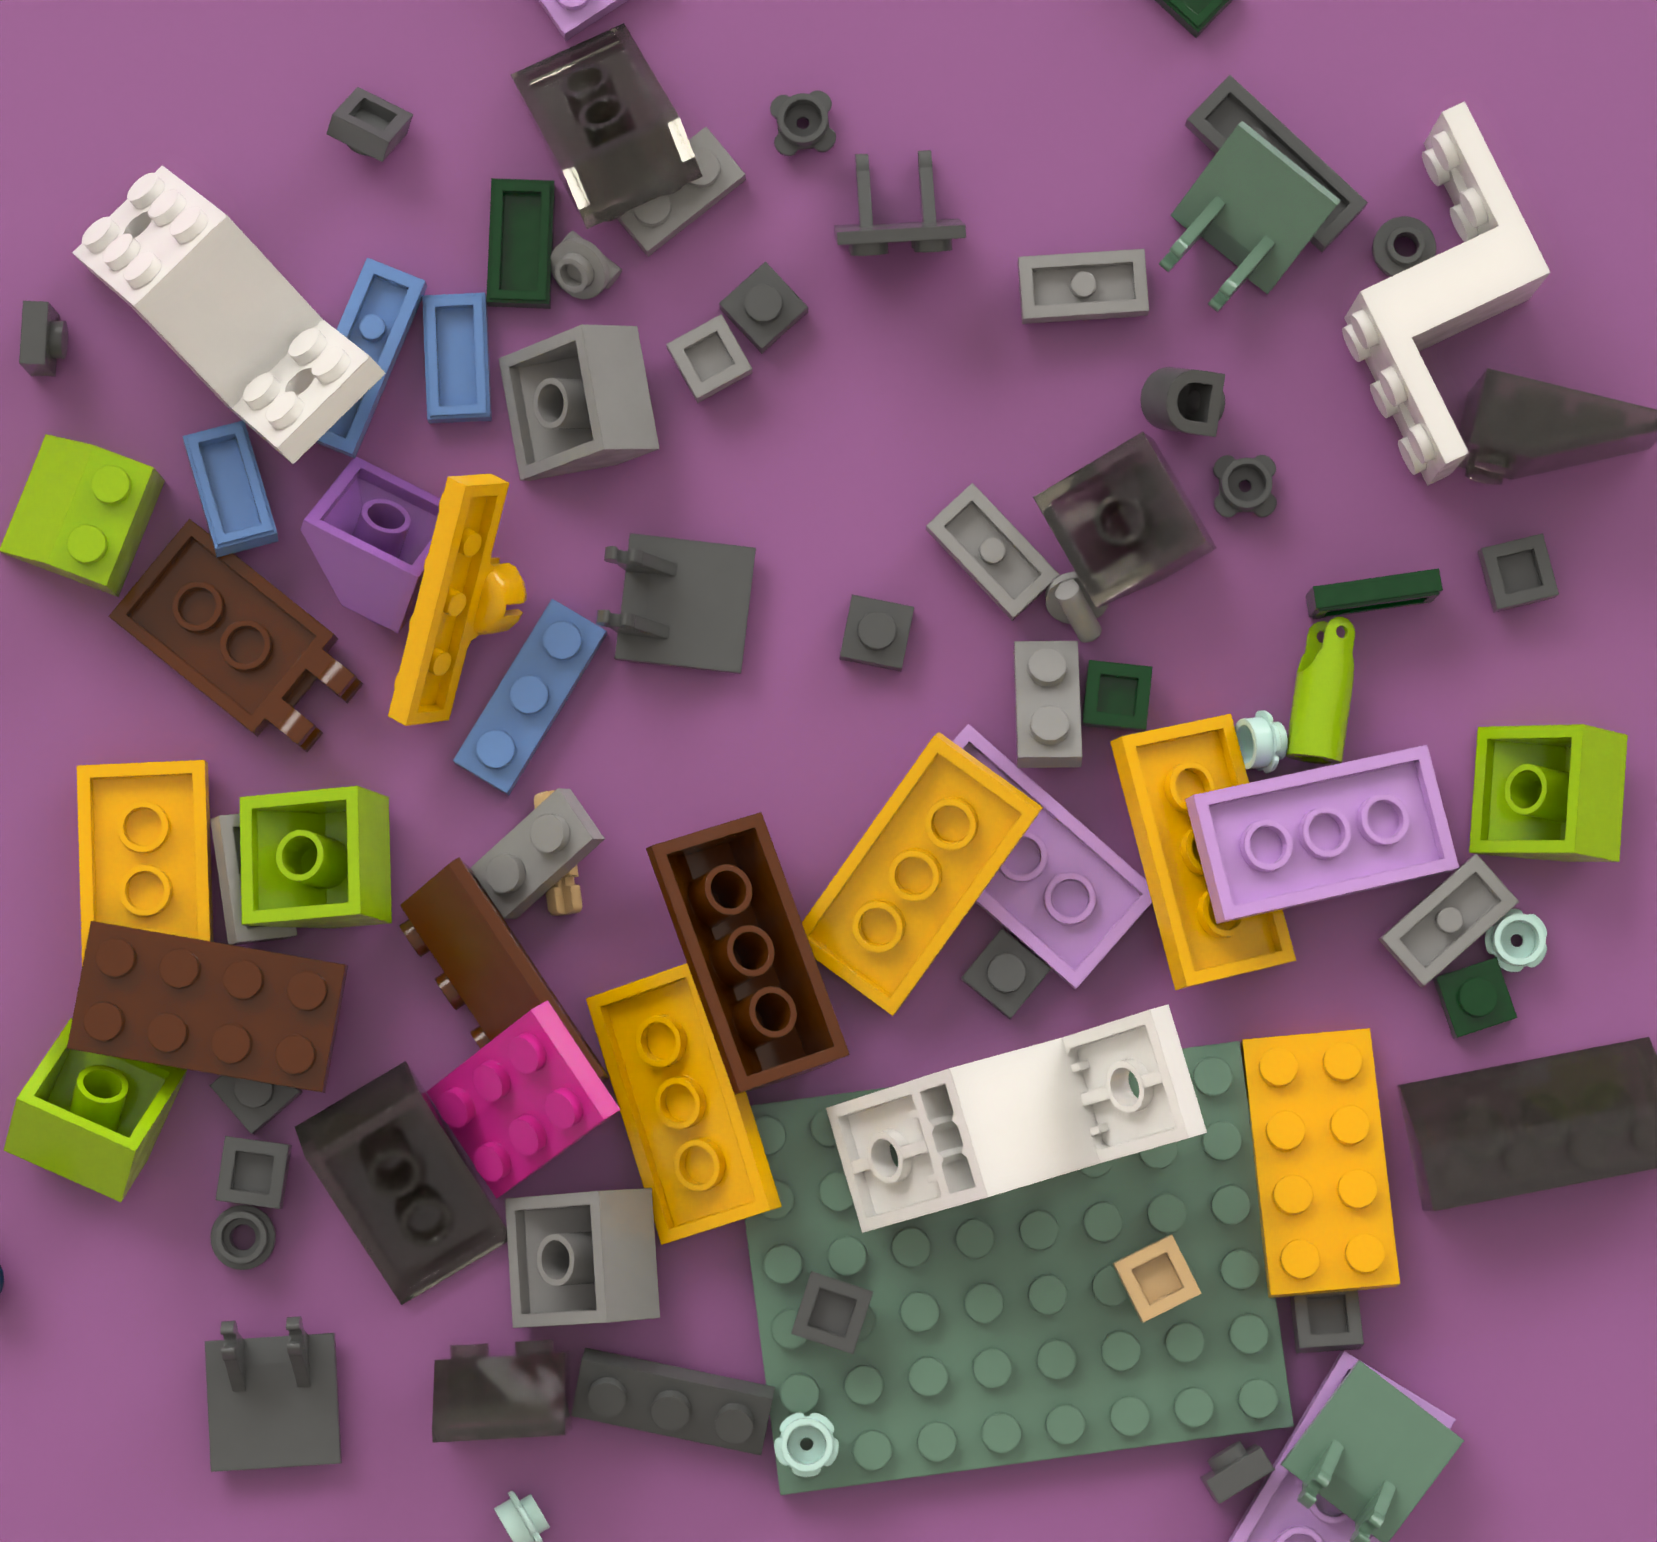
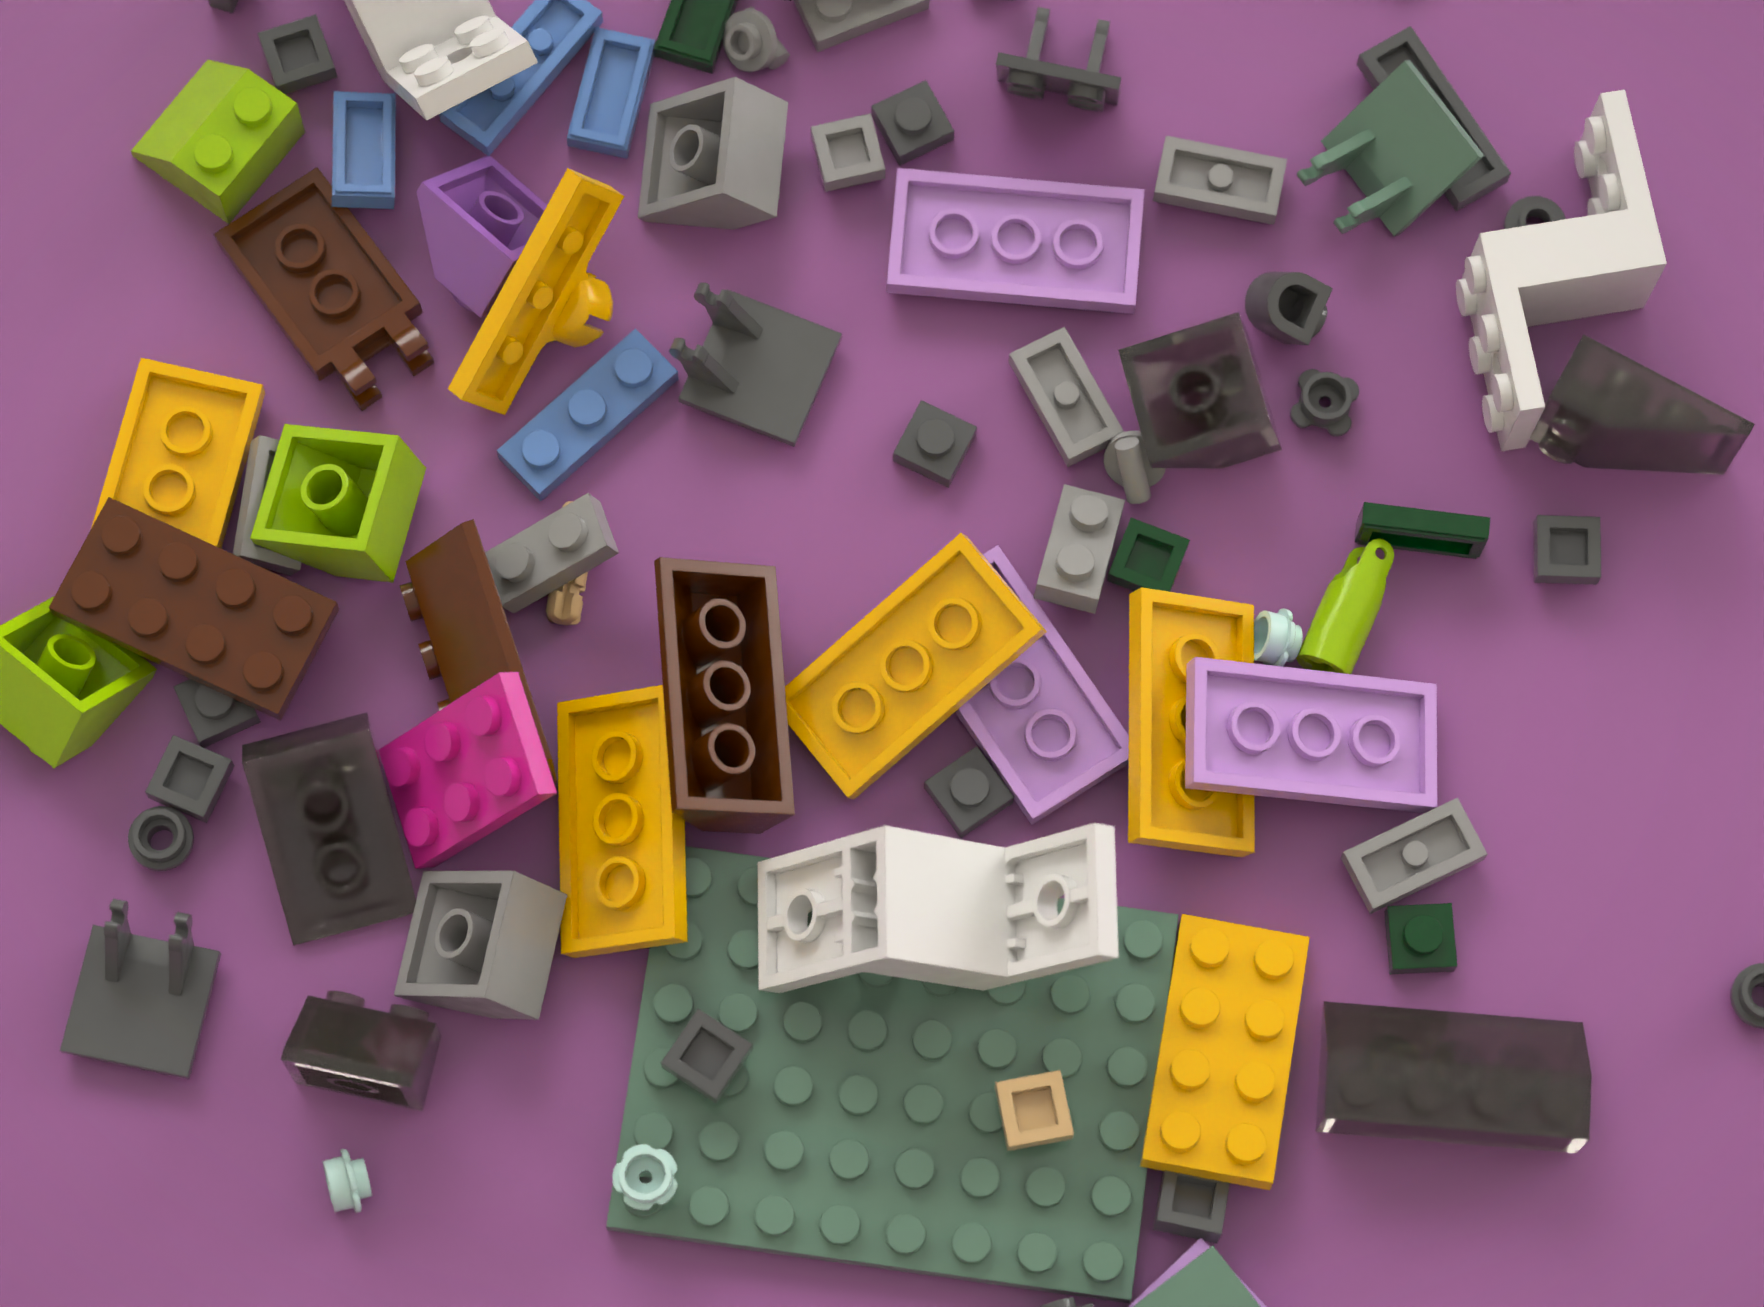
camera: 15 degrees right, 10 degrees down
(134, 407) = (297, 54): none -> dark grey plate
(672, 1401) = (527, 1106): dark grey plate -> none
(899, 404) = (1015, 241): none -> lavender plate
(1533, 937) = (1490, 885): light aqua plate -> none
(1549, 793) = (1544, 760): lime slope -> none

